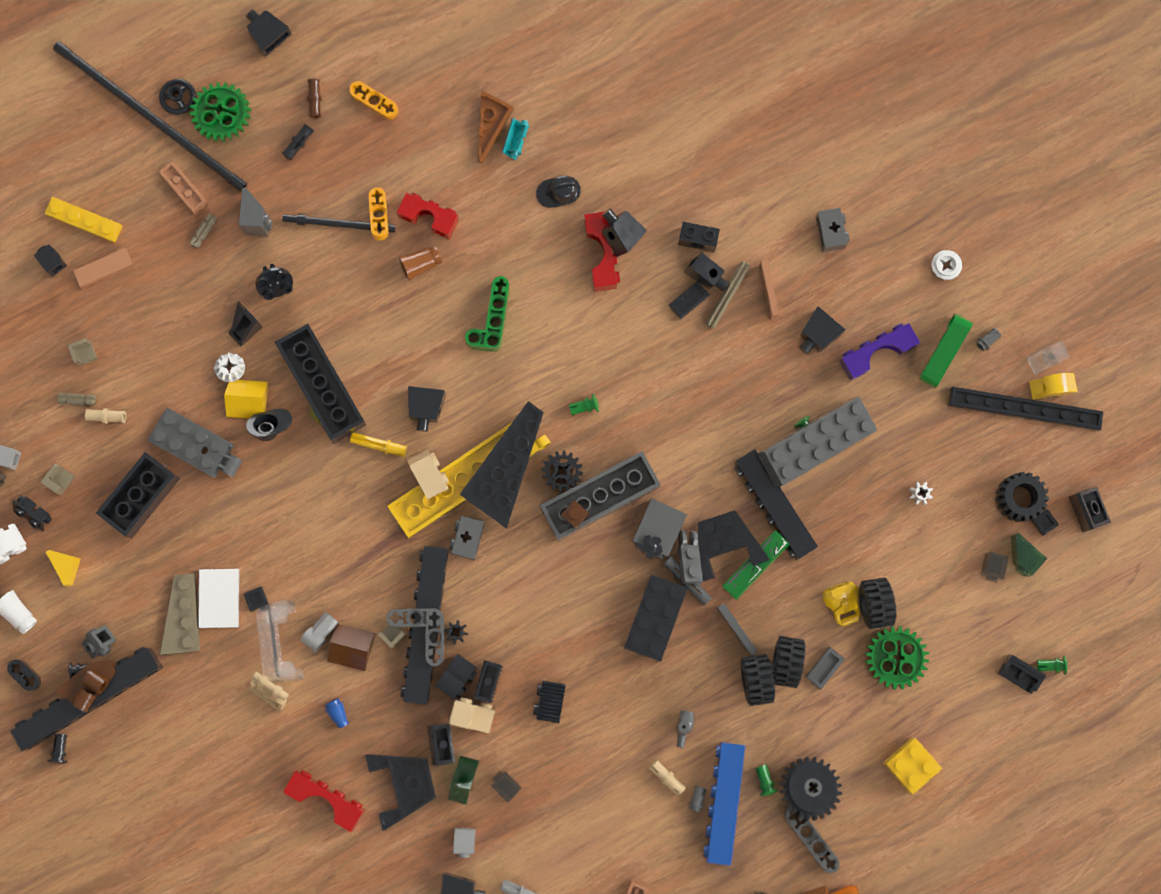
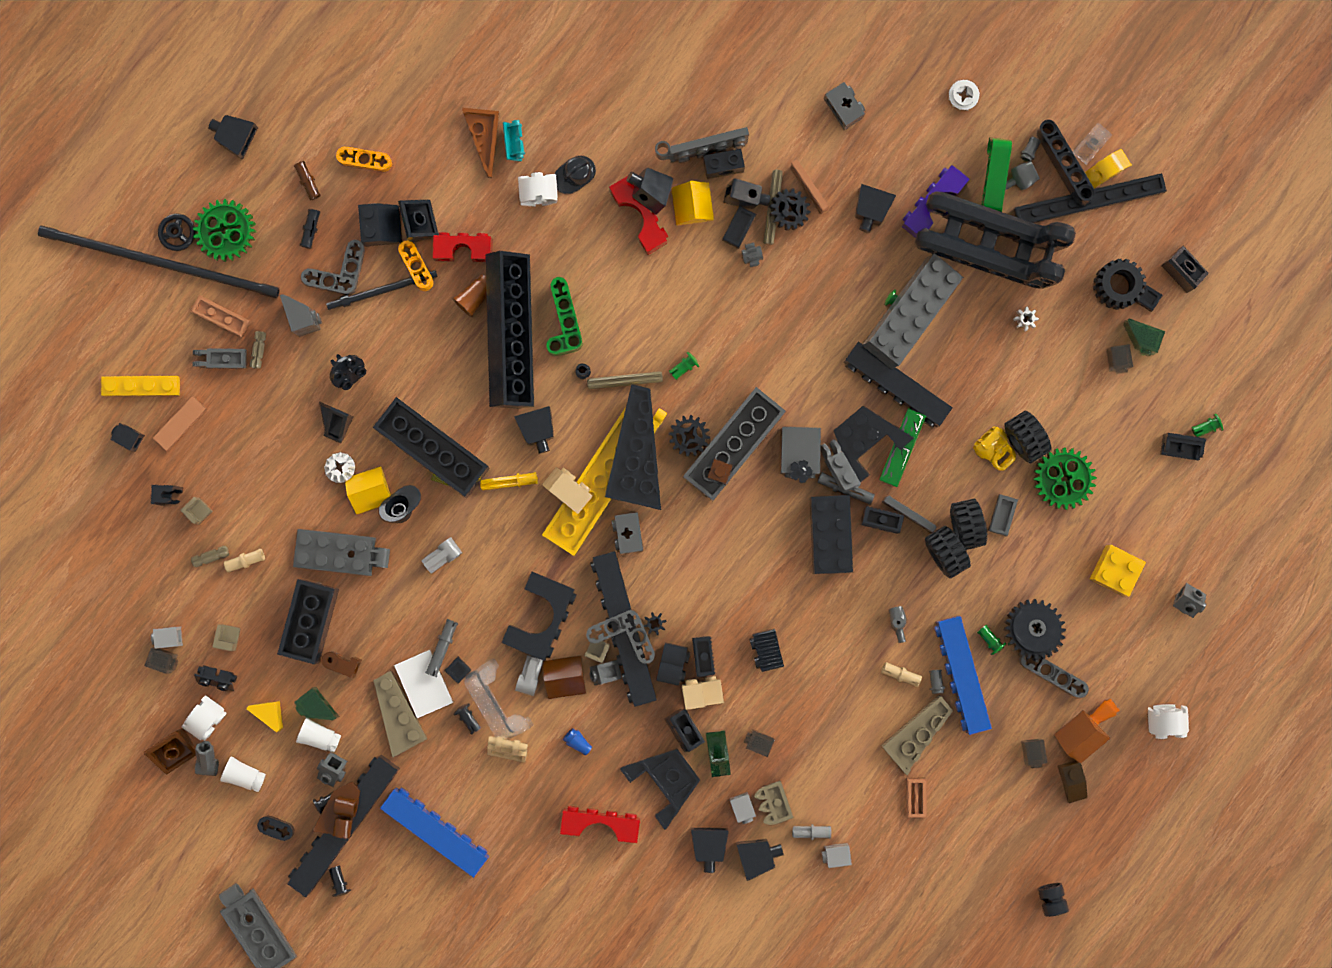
camera: 20 degrees left, 5 degrees up
(58, 324) = (162, 494): none -> black hinge
(100, 605) = (318, 736): none -> white plant
(110, 576) = (315, 706): none -> clear green slope
(150, 548) = (336, 663): none -> reddish brown leg
(167, 225) = (222, 358): none -> dark grey hinge
(168, 741) = (434, 831): none -> blue brick
(245, 647) = (468, 719): none -> black pin
(256, 565) = (445, 640): none -> dark grey pin
(292, 486) = (445, 553): none -> light grey piece
(310, 197) = (344, 276): none -> dark grey beam
(362, 163) = (379, 224): none -> black slope
(378, 572) = (540, 643): none -> black arch
(390, 659) = (605, 672): none -> dark grey bracket
(398, 173) = (418, 219): none -> black slope
(417, 864) = (709, 846): none -> black torso
(437, 306) = (509, 330): none -> black brick
(489, 376) = (583, 375): none -> black pin
(497, 850) = (775, 803): none -> dark tan plate
(518, 190) = (537, 189): none -> white brick
(524, 396) = (624, 380): none -> dark tan axle
(655, 260) = (692, 203): none -> yellow slope
(658, 841) = (916, 734): none -> dark tan wing
(686, 213) = (703, 146): none -> dark grey hinge
(690, 330) = (752, 254): none -> dark grey gear
(708, 624) = (882, 520): none -> black brick
(744, 312) = (784, 204): none -> black gear
(925, 392) = (995, 224): none -> black beam
(970, 823) = (1190, 600): none -> dark grey brick
(972, 361) = (1023, 176): none -> dark grey piece
(1012, 372) = (1065, 172): none -> black beam

